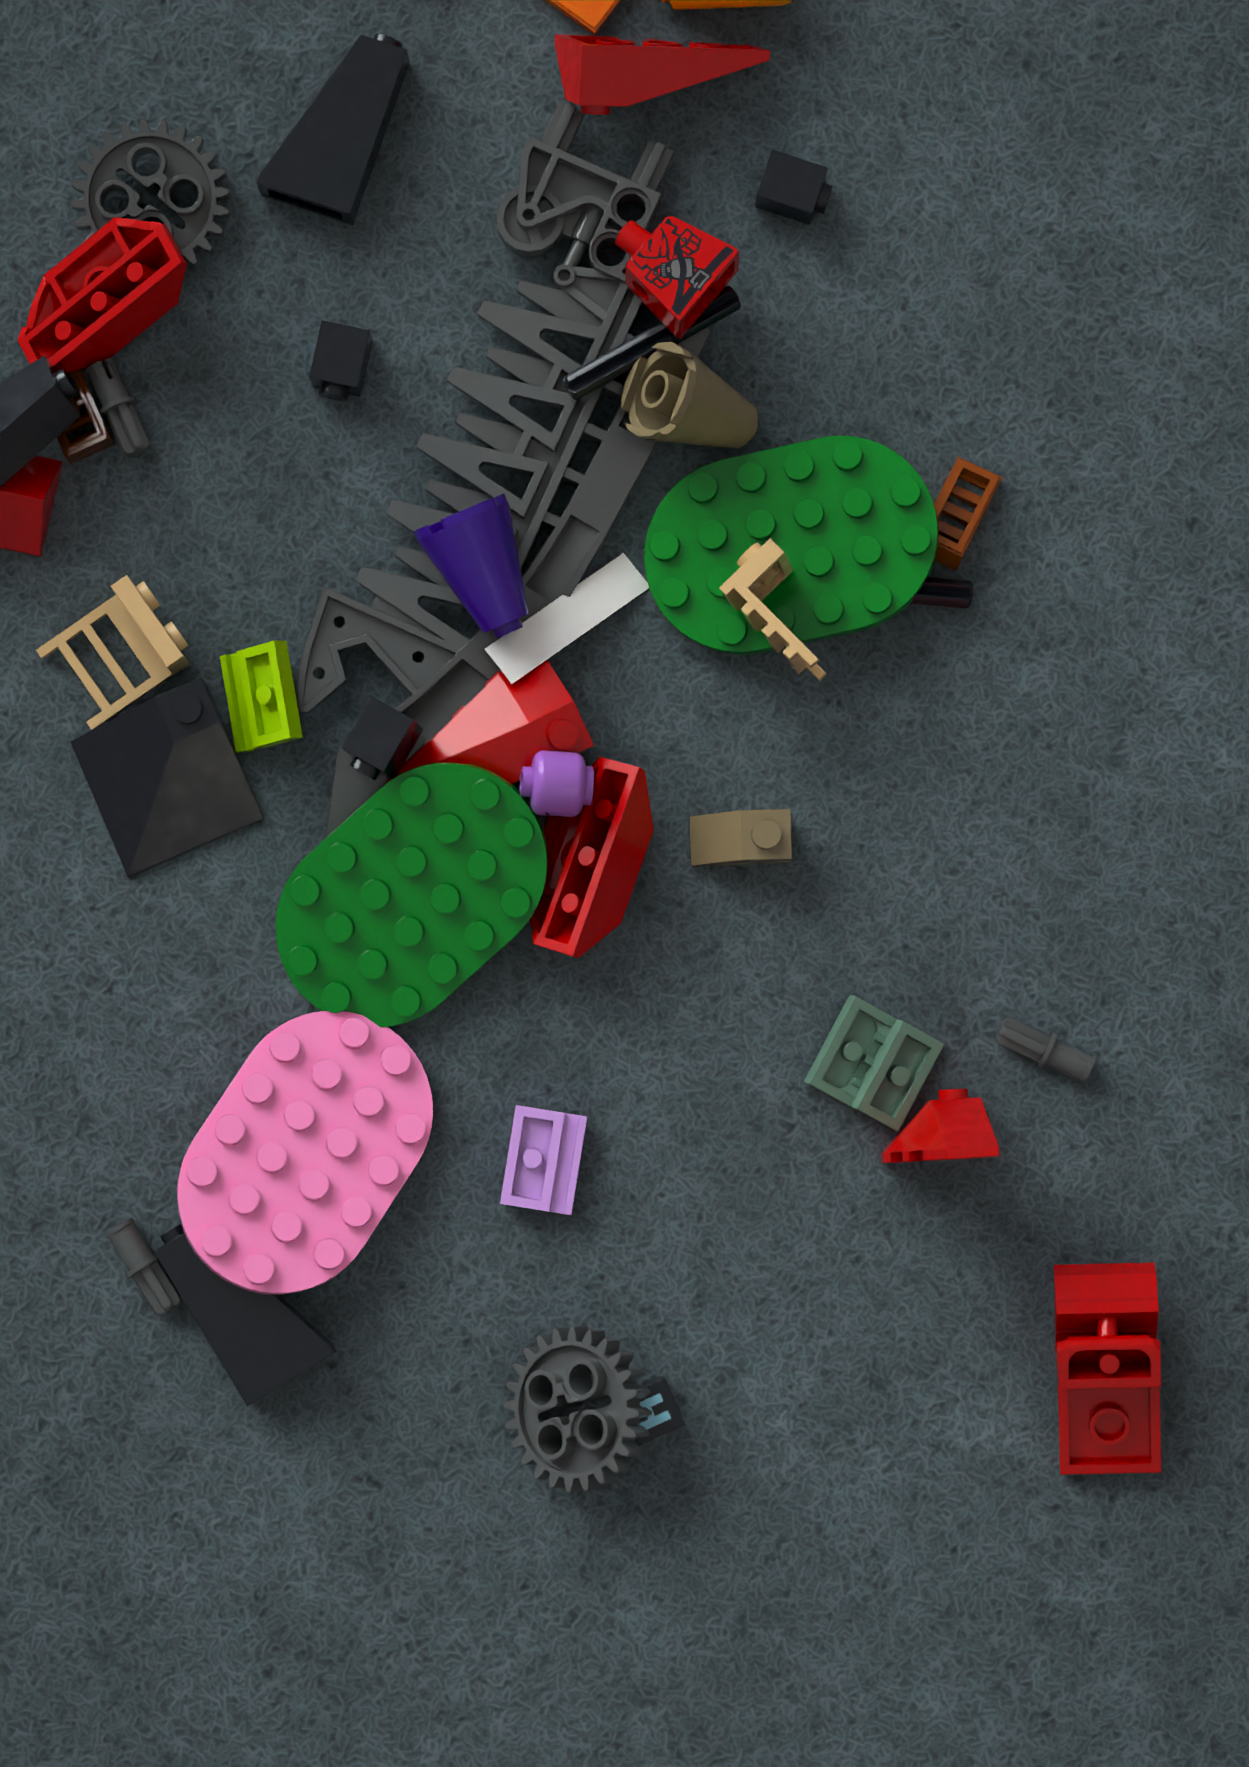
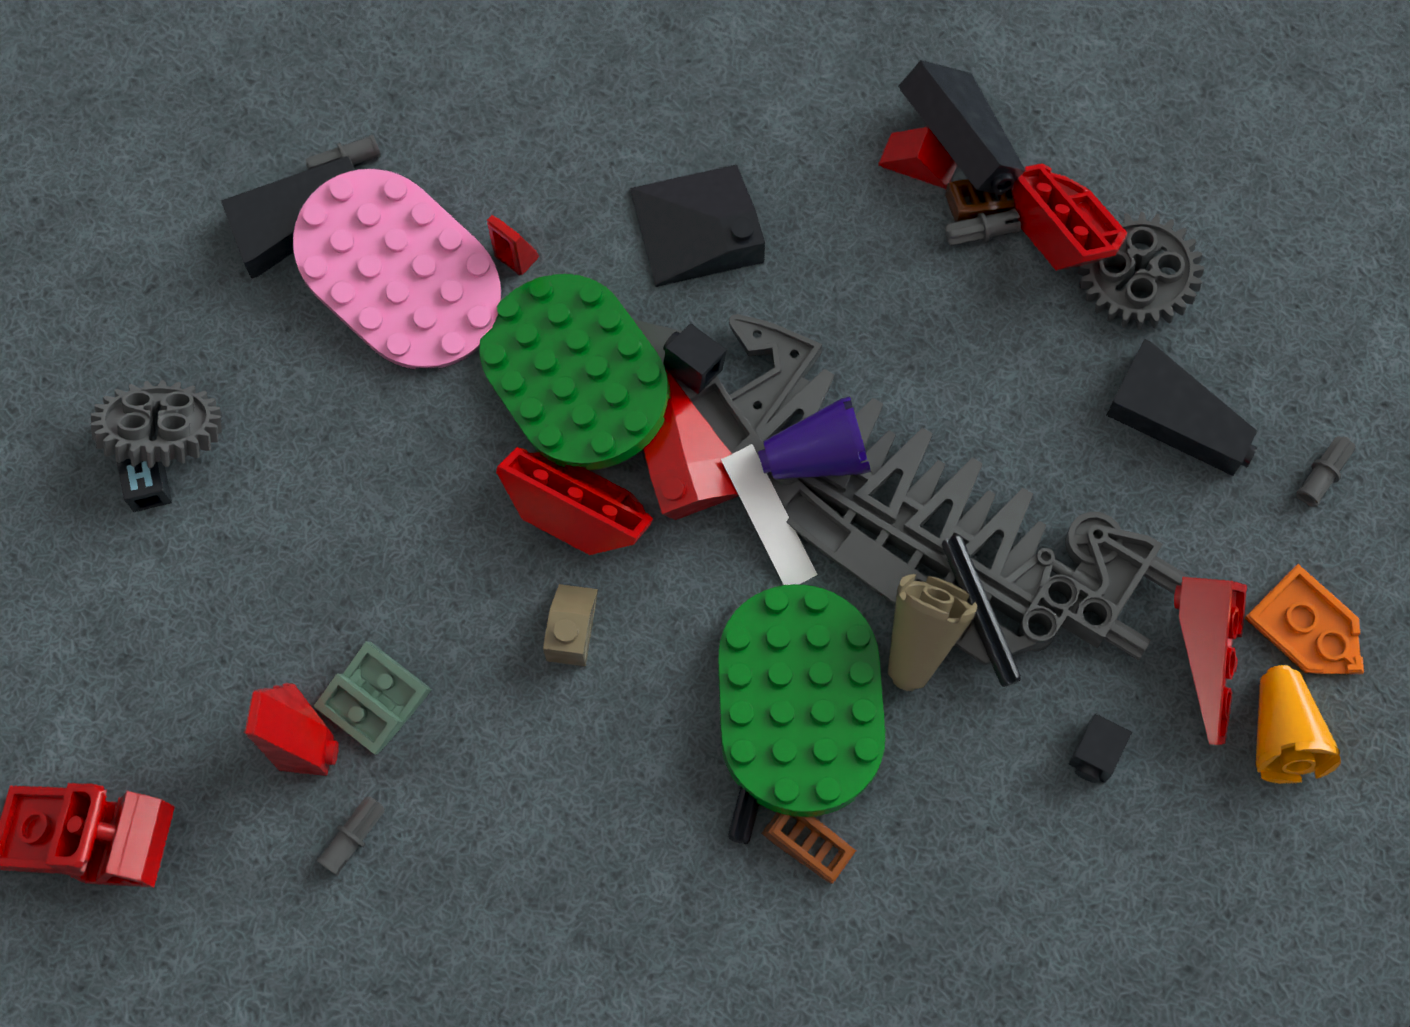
camera: 100 degrees right, 15 degrees down
(155, 646) = (808, 221): tan plate -> none
(247, 1008) = (510, 246): none -> red slope
(261, 696) = (746, 291): lime plate -> none
(340, 360) = (997, 384): black brick -> none
(543, 1160) = (354, 437): lavender plate -> none
(557, 783) = (634, 476): medium lavender head -> none
(676, 270) = (1035, 630): red torso -> none
(759, 574) = (759, 641): tan plate -> none

